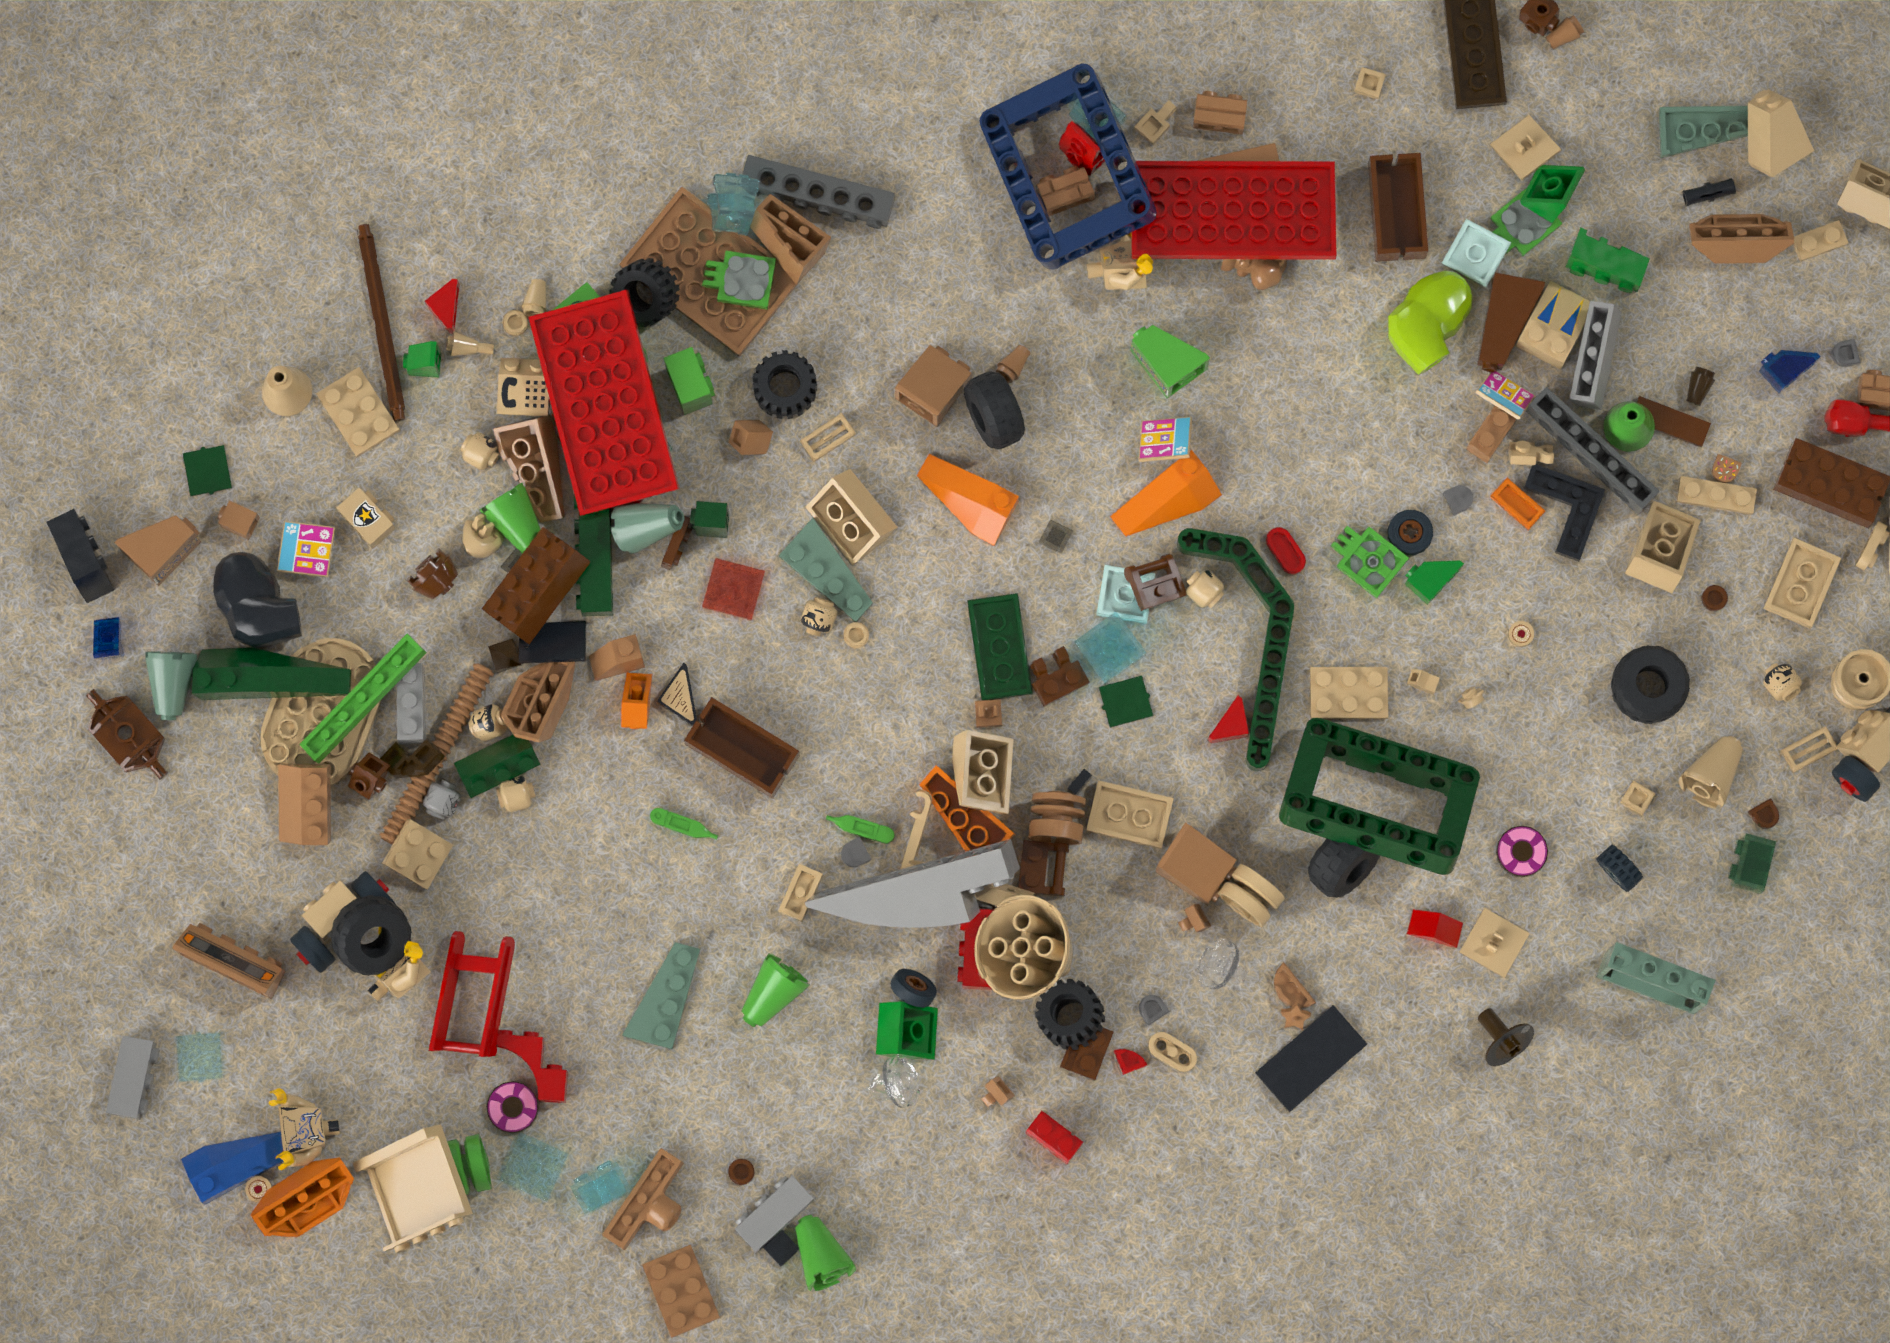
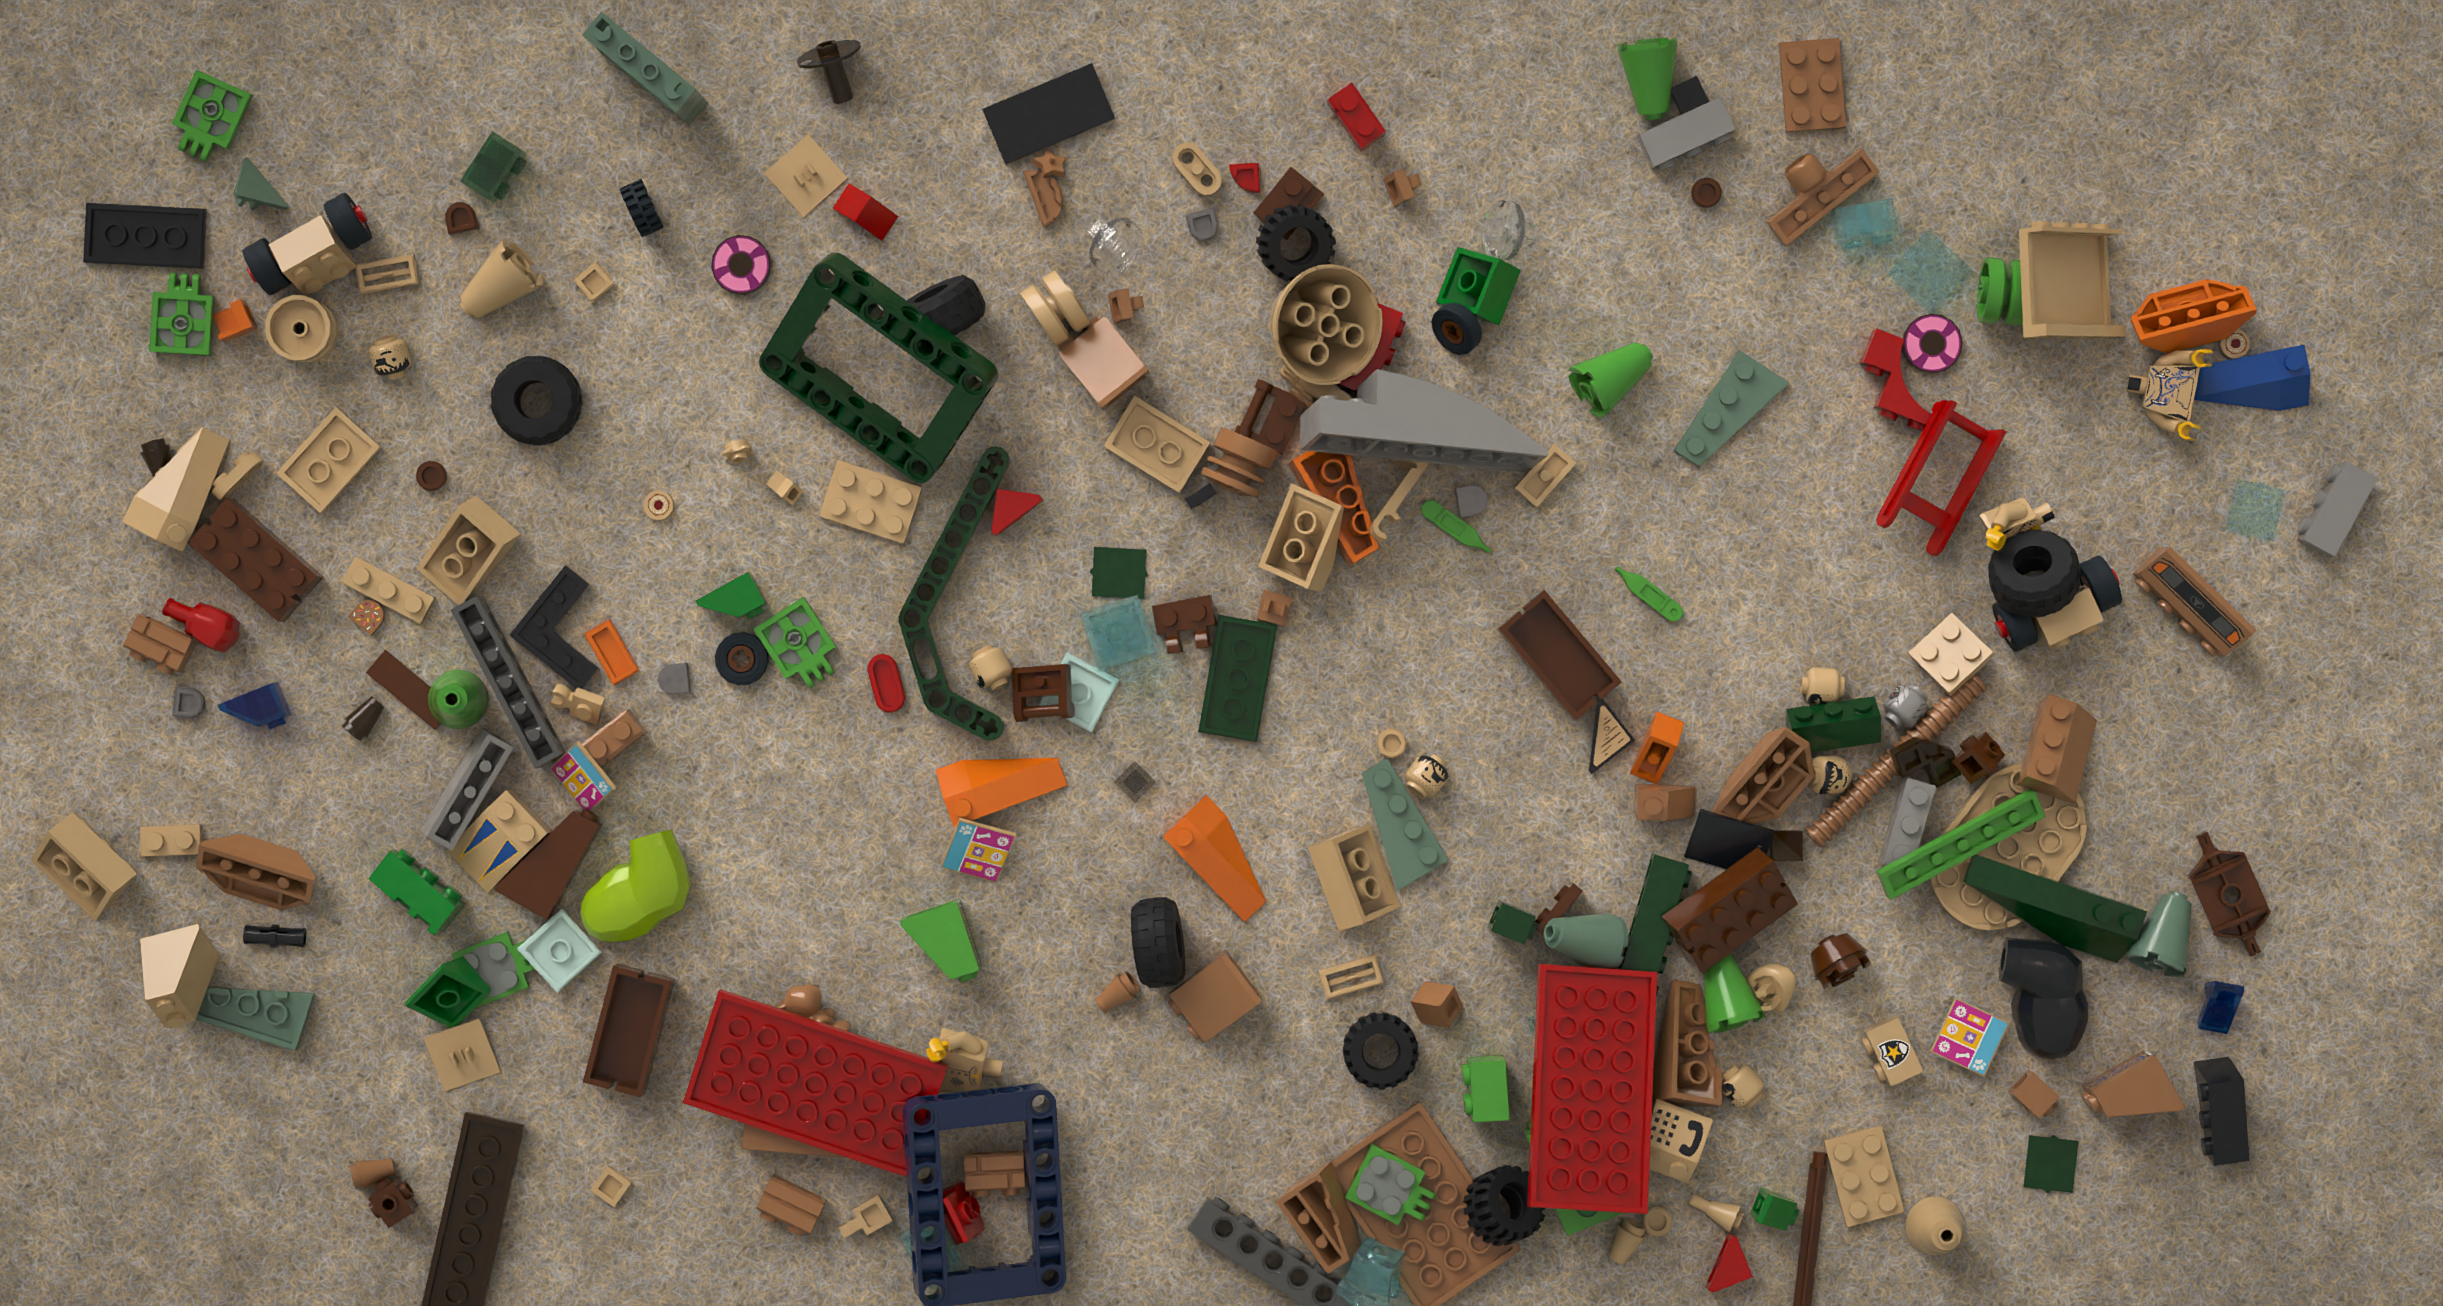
camera: 160 degrees left, 10 degrees up
(733, 589) = (1510, 839): clear red tile -> none

